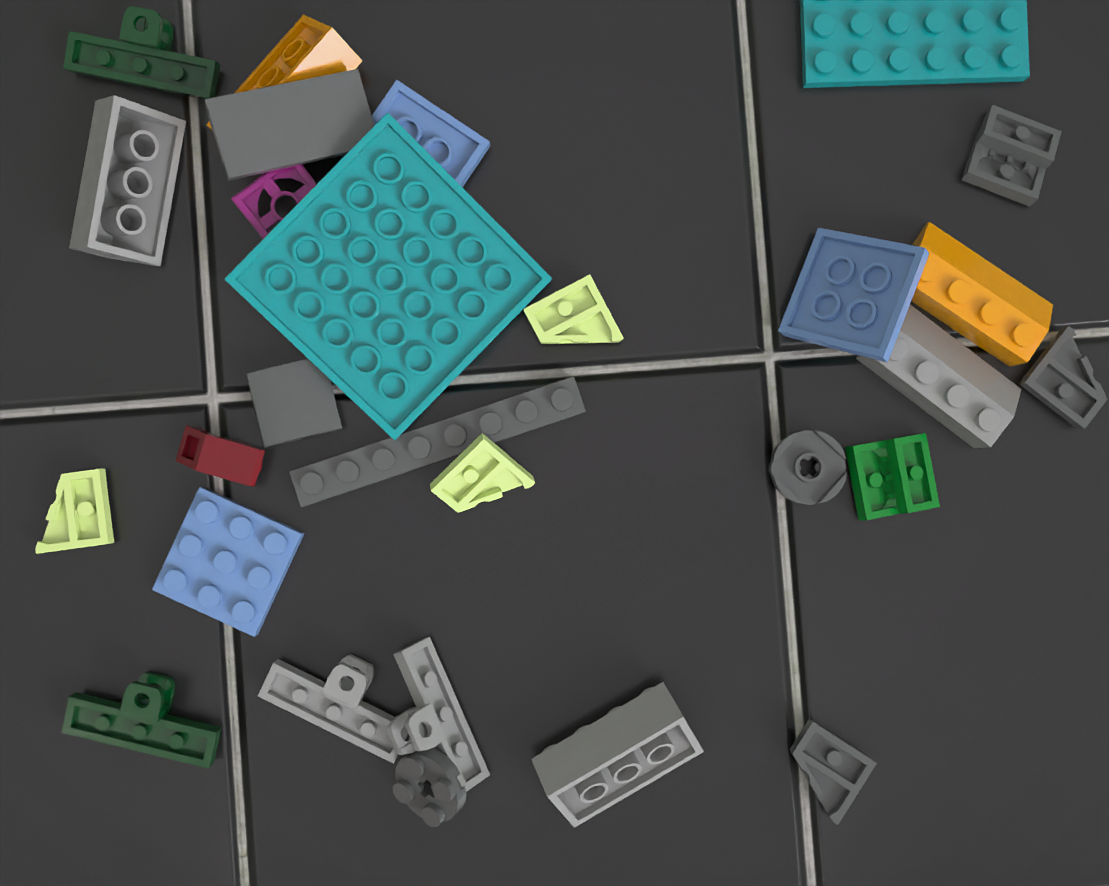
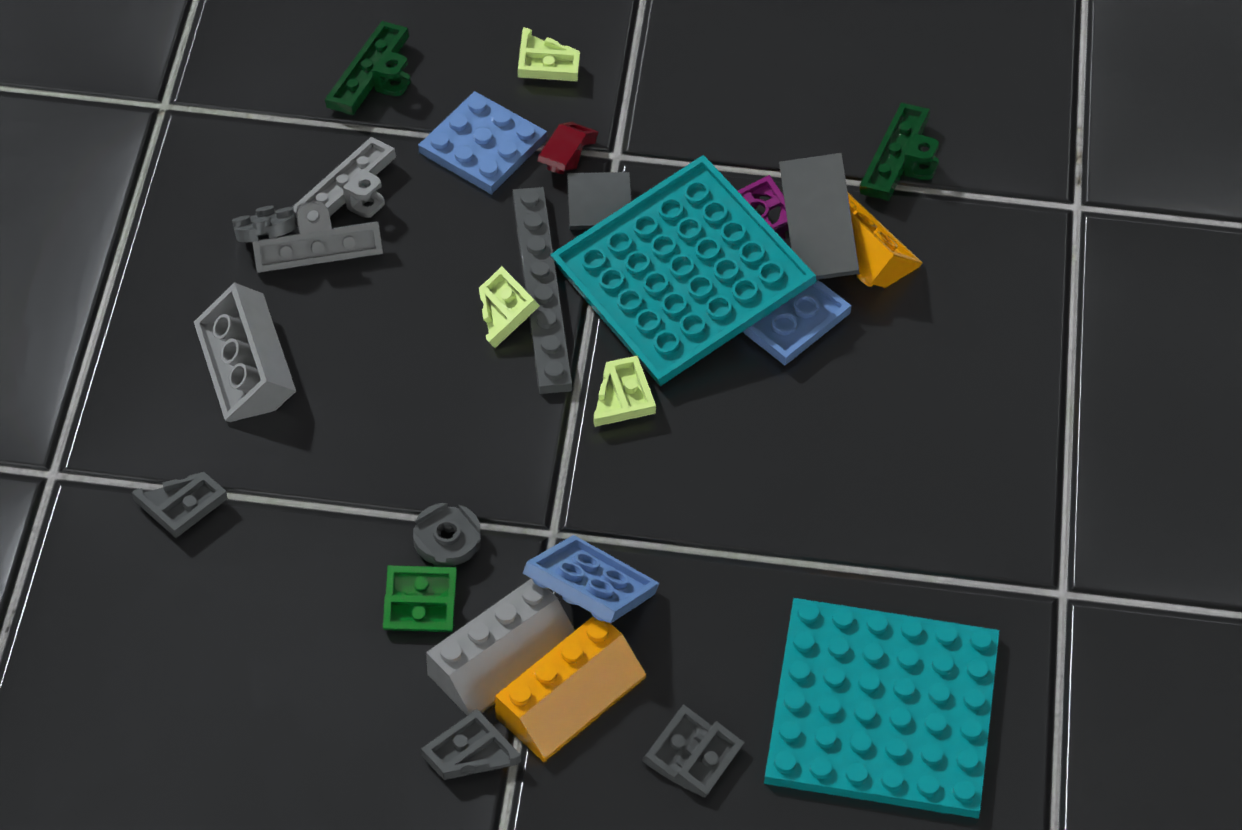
camera: 95 degrees right, 35 degrees down
(127, 182) = (798, 125): light grey slope -> none

